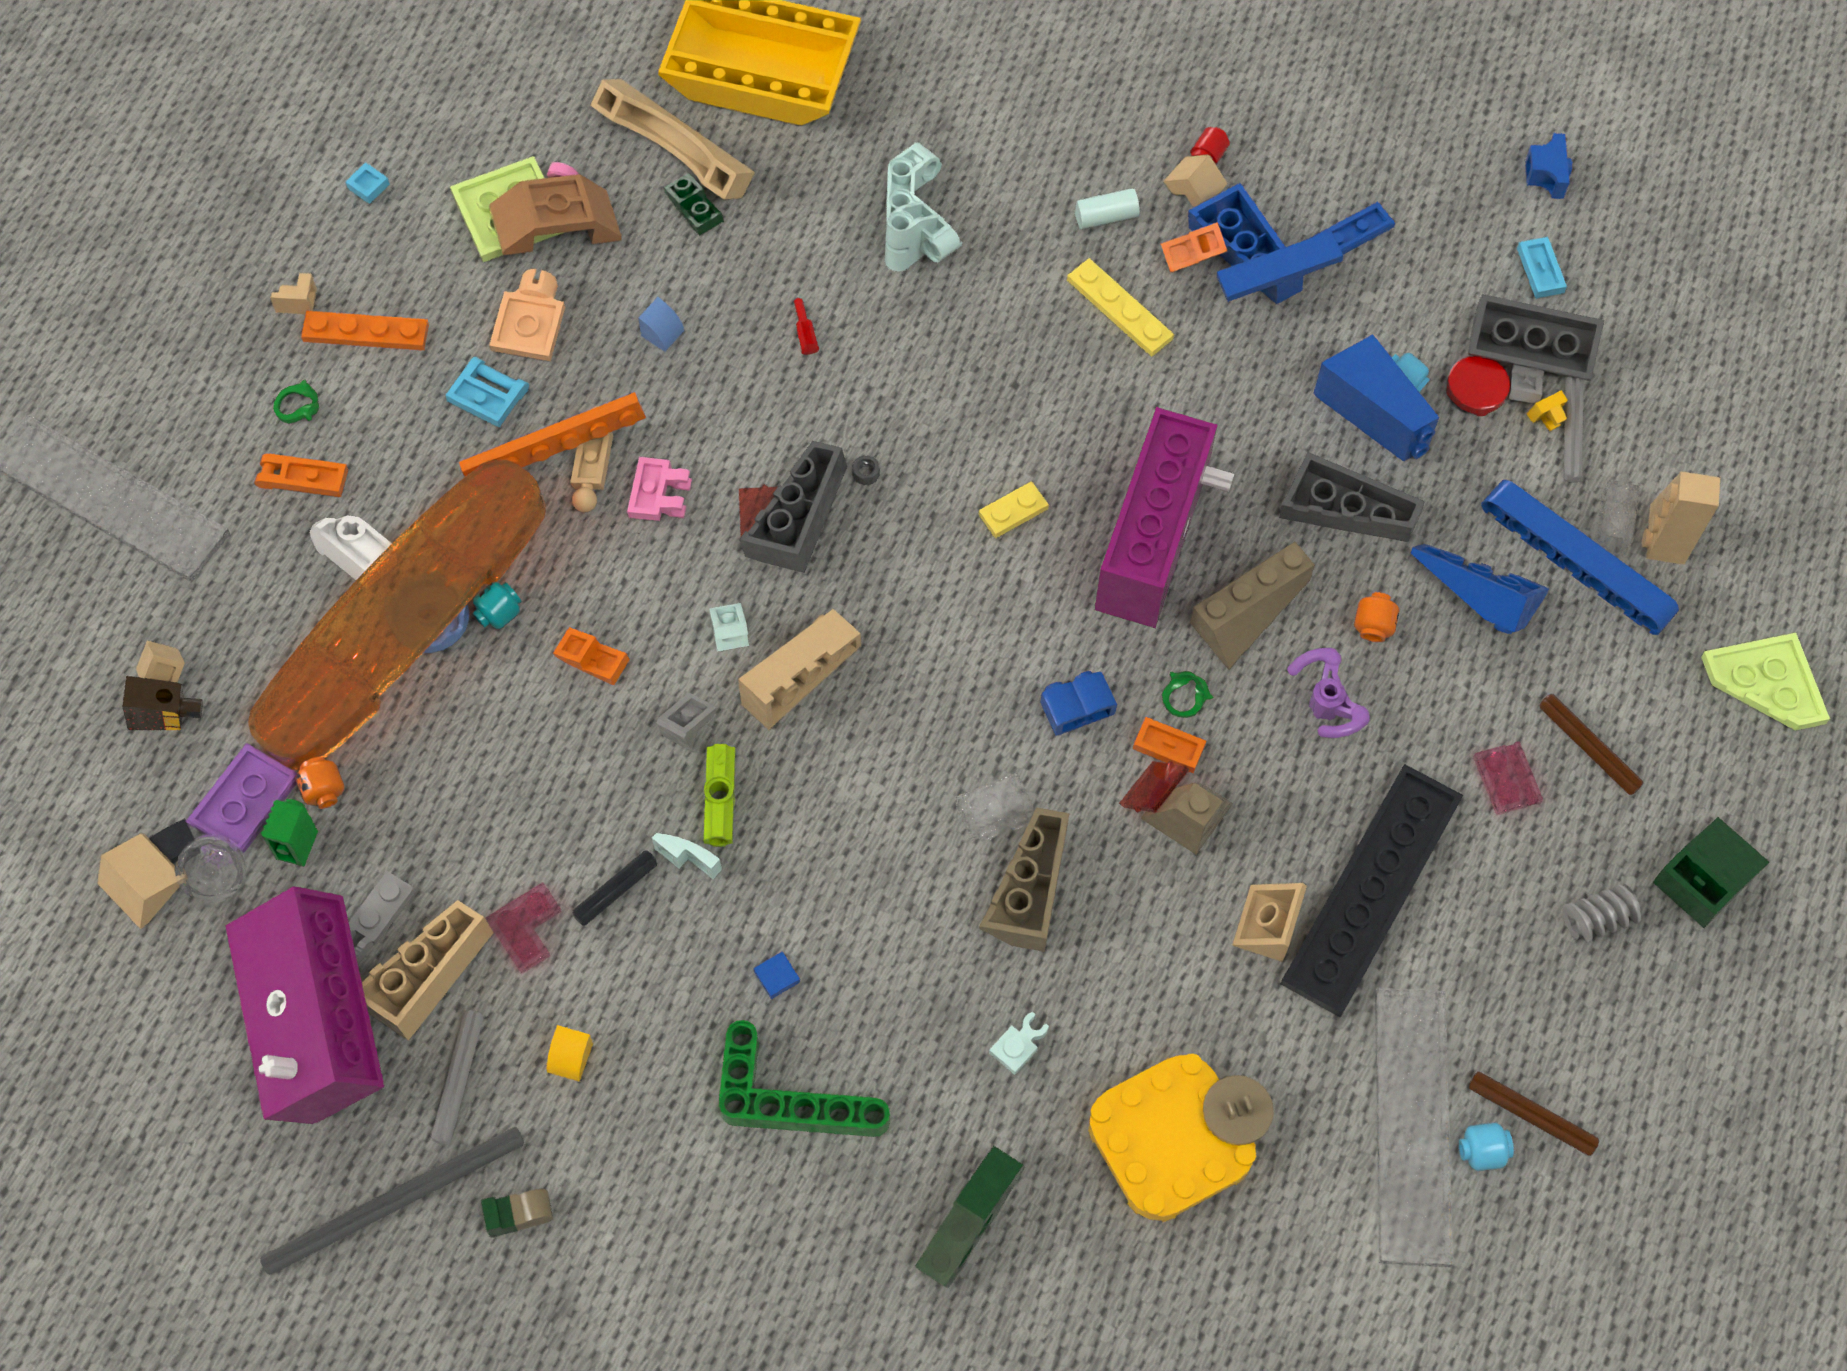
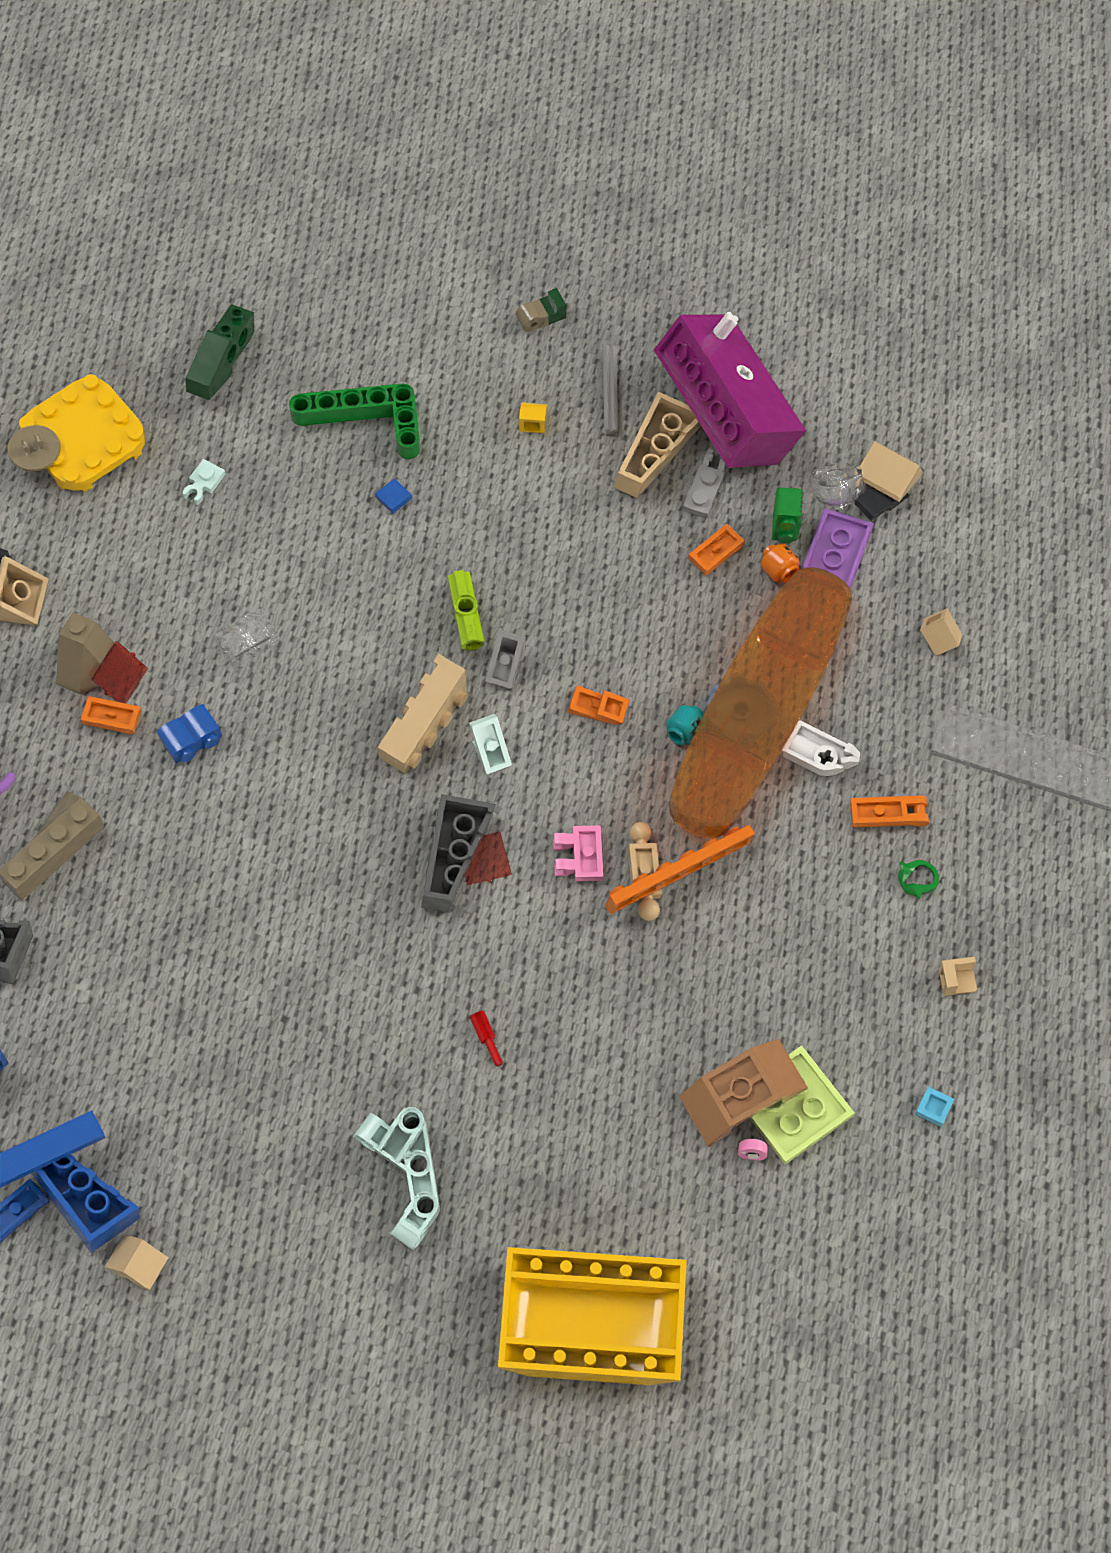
camera: 170 degrees right, 0 degrees up
(157, 704) = (927, 593): dark brown torso -> none
(365, 330) = (883, 959): orange plate -> none
(391, 821) = (716, 549): none -> orange plate
(391, 1201) = (629, 308): dark grey axle -> none
(482, 398) = (759, 910): medium azure plate -> none
(516, 924) = (597, 496): clear pink plate -> none
(529, 318) = (738, 992): light nougat plate -> none
(614, 888) = (531, 535): black axle -> none
(660, 324) = (617, 1007): medium blue brick -> none
(680, 850) = (488, 564): light aqua slope -> none
(693, 204) = (620, 1147): dark green slope -> none
(709, 162) = (603, 1177): tan arch -> none
(865, 461) = (404, 899): dark grey axle -> none
(1013, 509) = (268, 896): light yellow plate -> none
(1026, 895) = (207, 573): dark tan wedge -> none
(1107, 208) = (220, 1213): light aqua brick -> none
(1120, 307) = (196, 1114): light yellow plate -> none
(1157, 516) = (136, 880): magenta piece -> none
(1177, 681) = (109, 775): green piece -> none
(1194, 247) = (135, 1177): orange slope -> none
(1211, 142) = (126, 1303): red brick -> none

